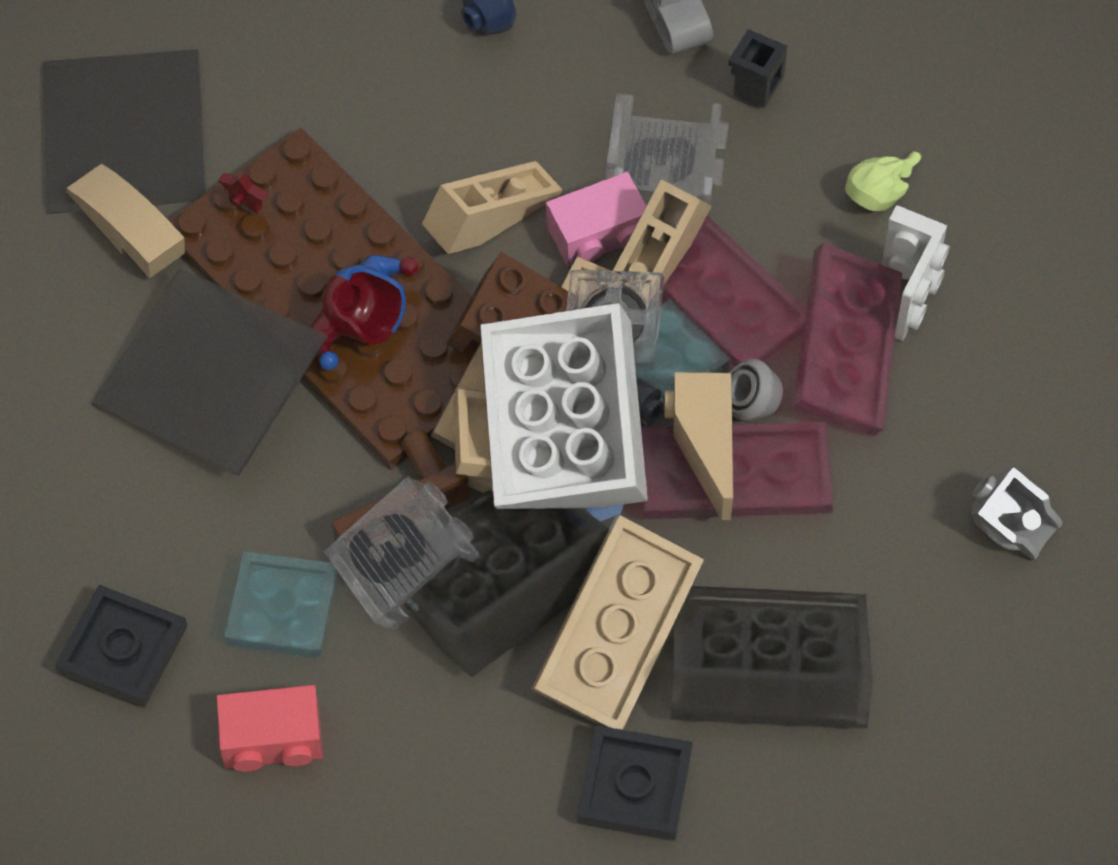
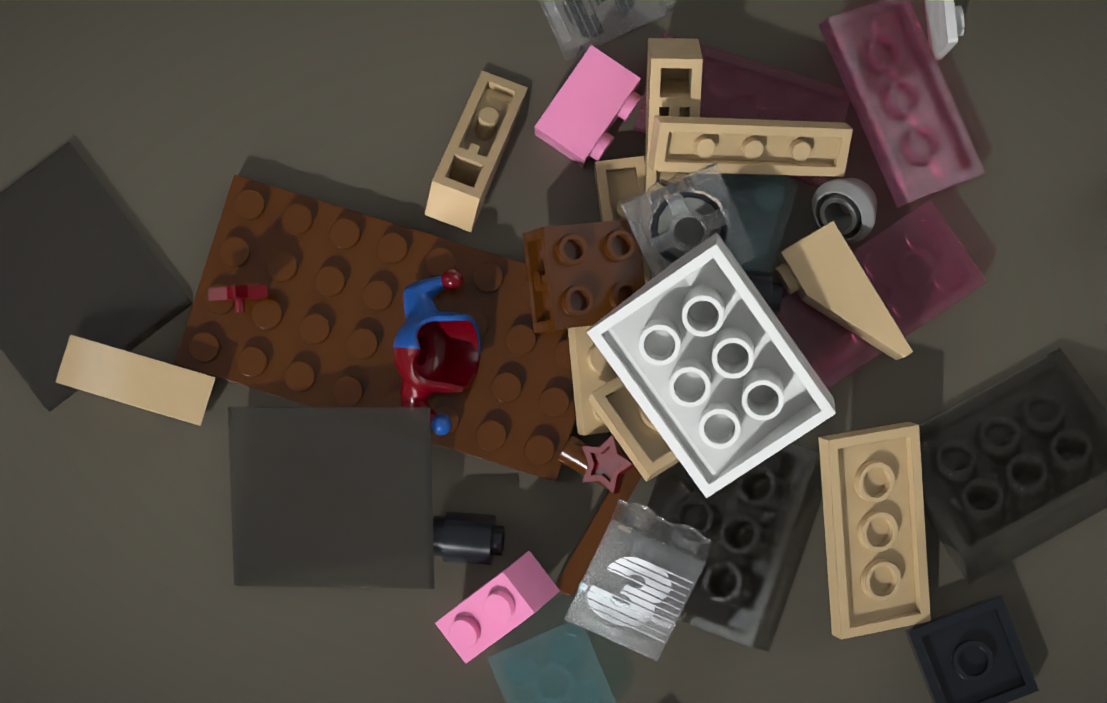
camera: 35 degrees left, 25 degrees up
(277, 509) = (497, 607): none -> bright pink brick
(291, 461) = (468, 537): none -> black brick
(435, 455) = (606, 464): none -> dark red piece
(703, 291) = (750, 146): none -> tan plate

